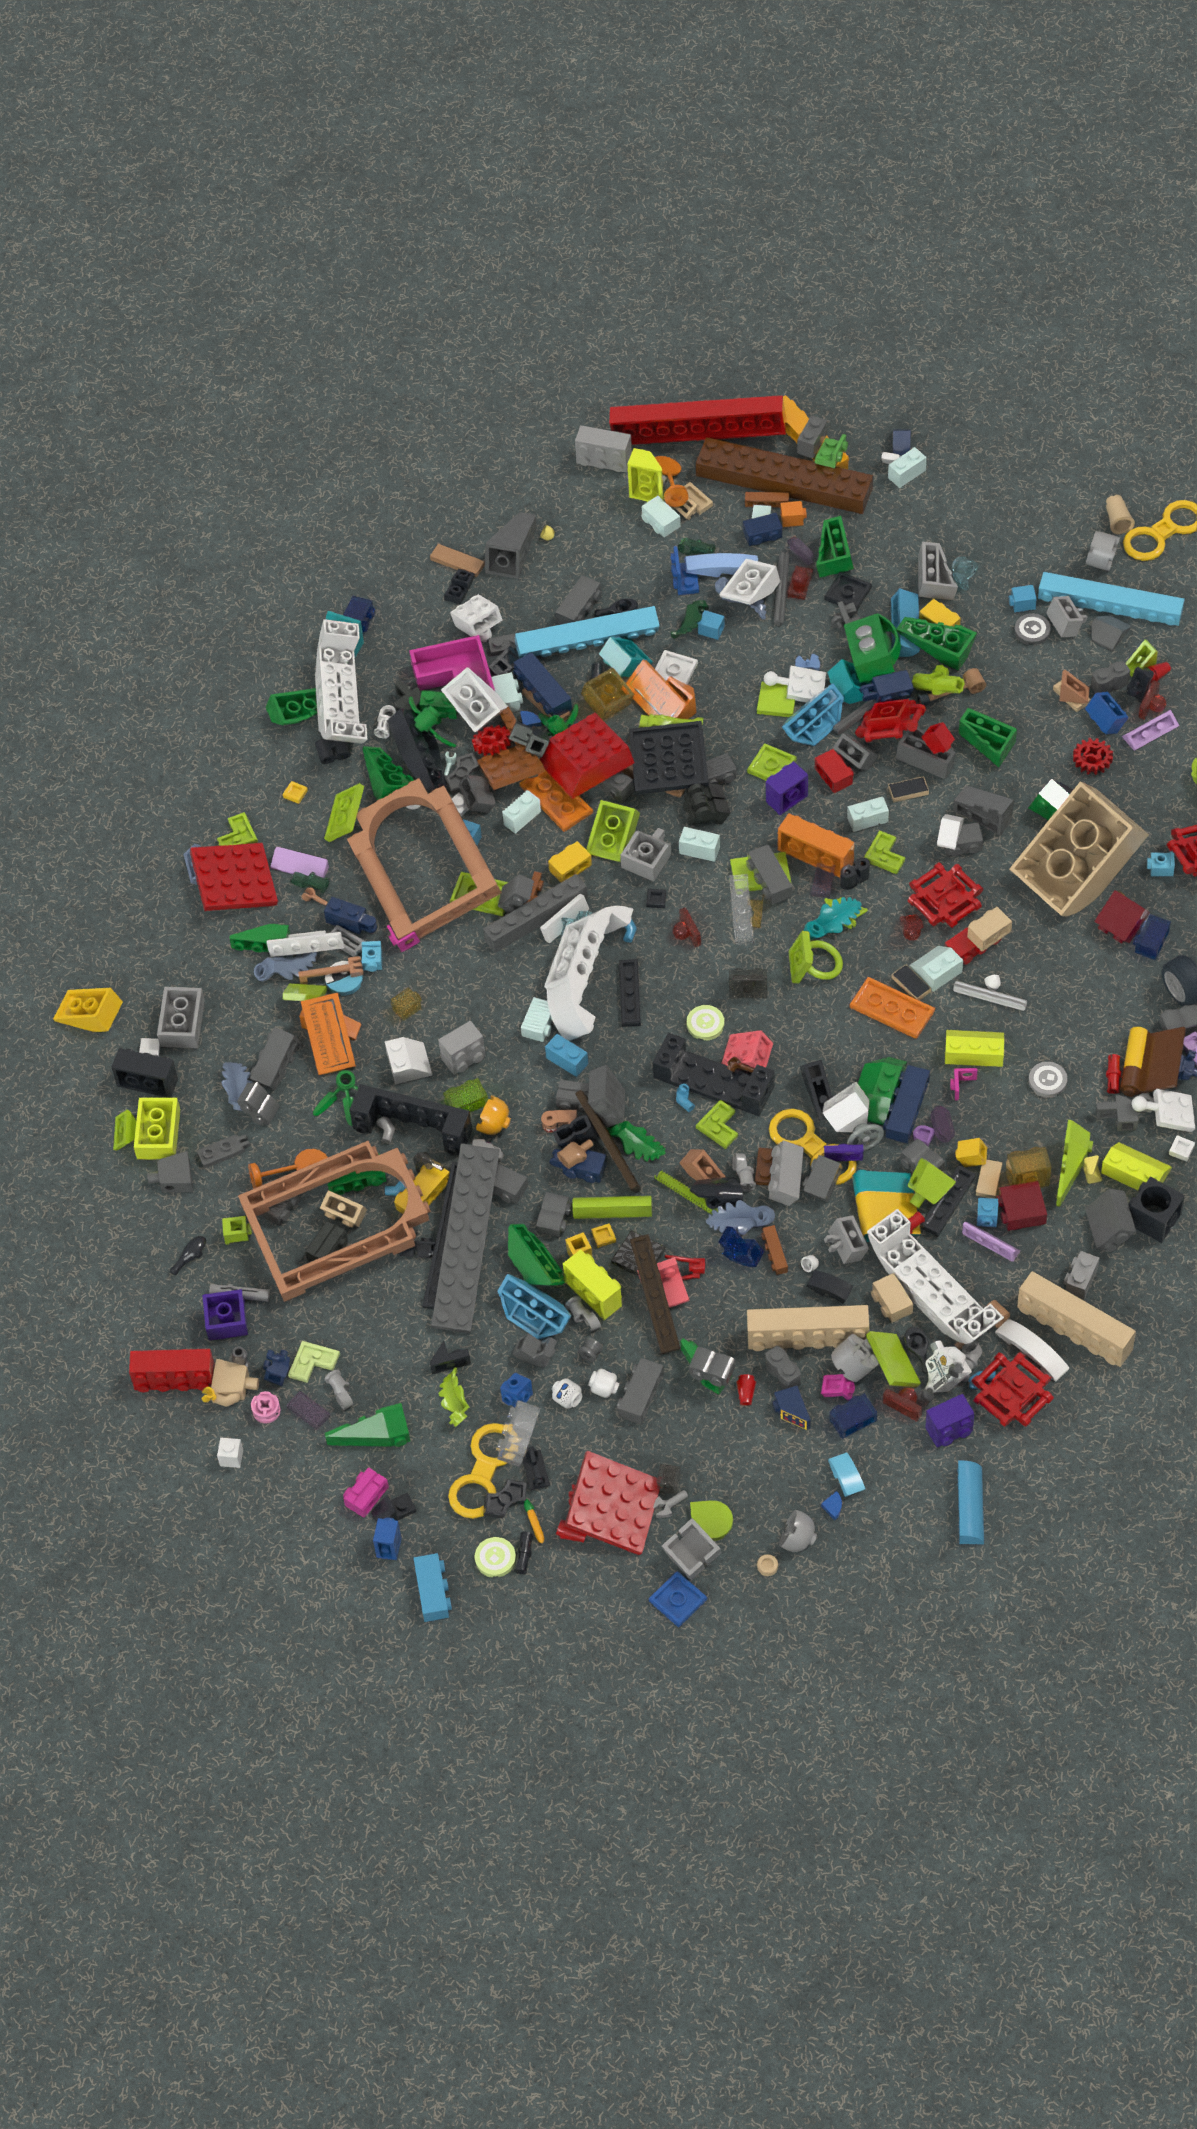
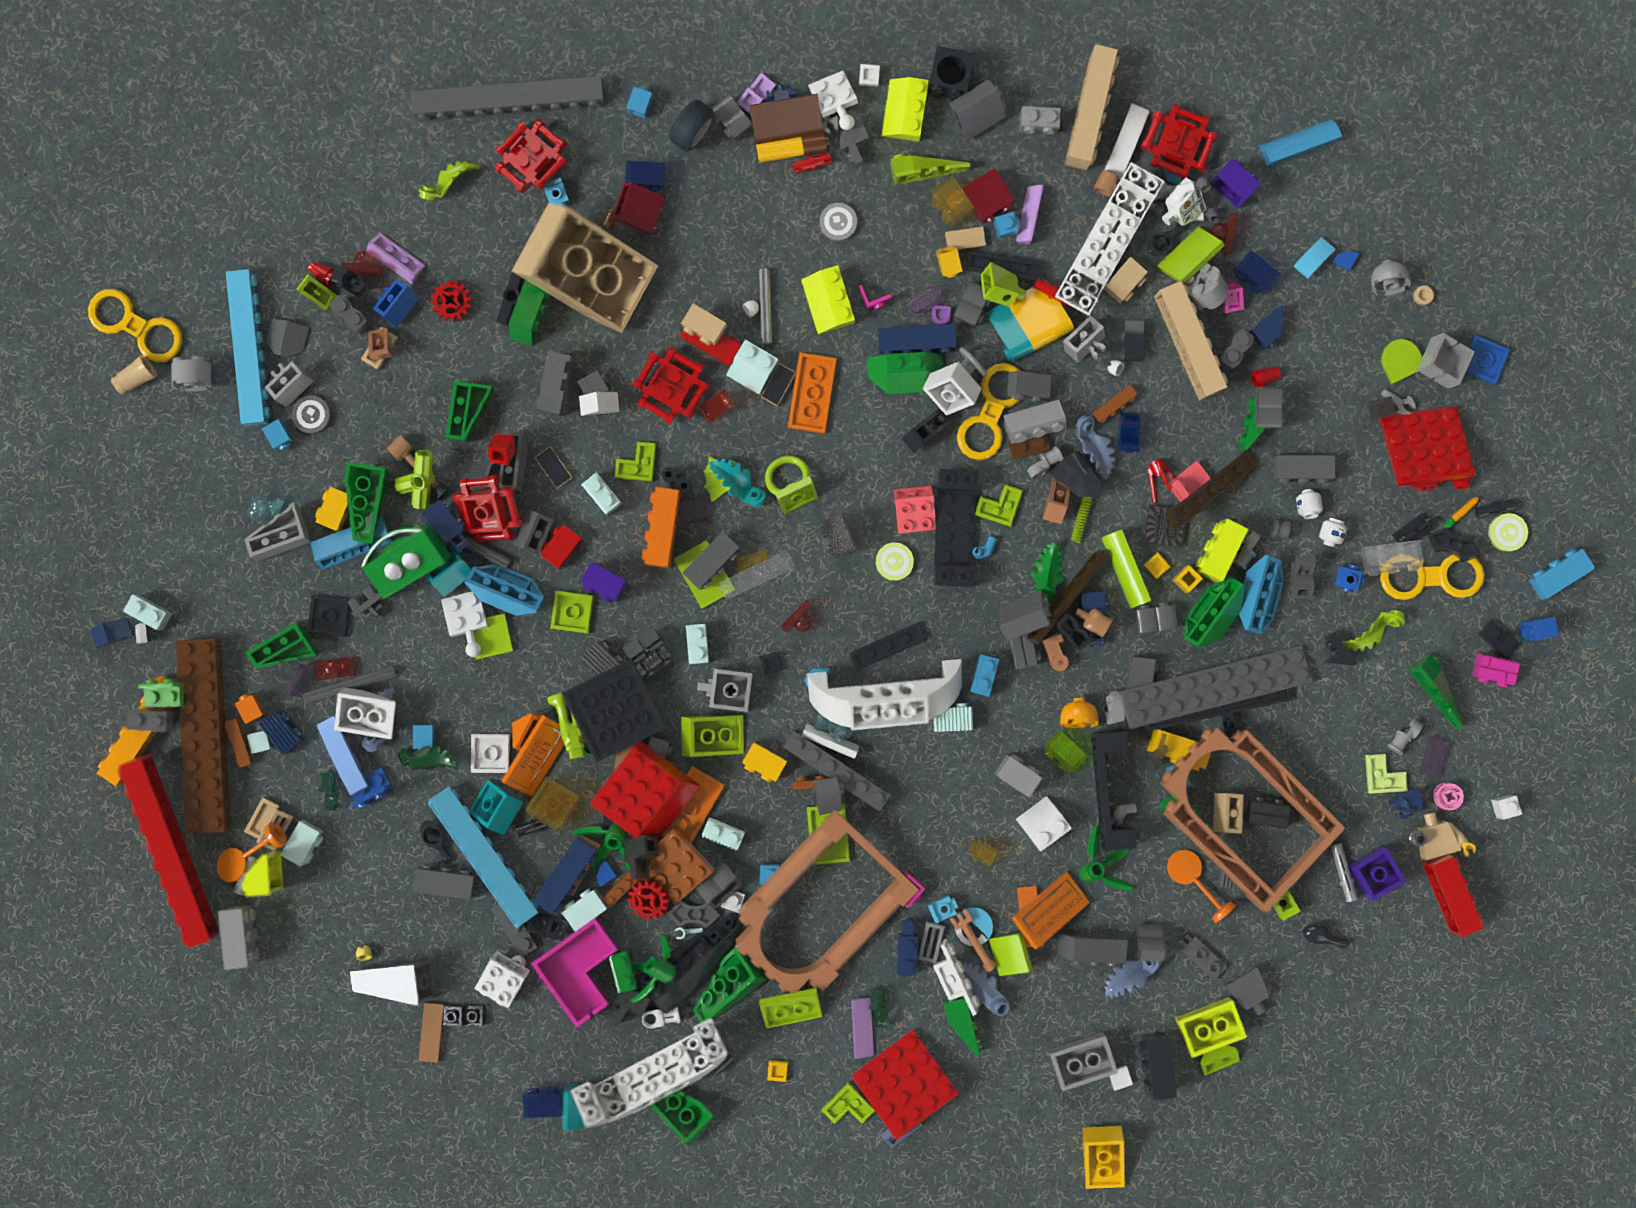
camera: 120 degrees left, 30 degrees up
(311, 892) = (893, 998): nougat hand -> none
(474, 699) = (618, 931): white slope -> none
(735, 1063) = (937, 510): reddish brown hand -> none
(814, 662) = (433, 617): medium blue piece -> none
(844, 1152) = (995, 376): dark purple plate -> none
(1091, 1169) = (923, 148): light yellow slope -> none

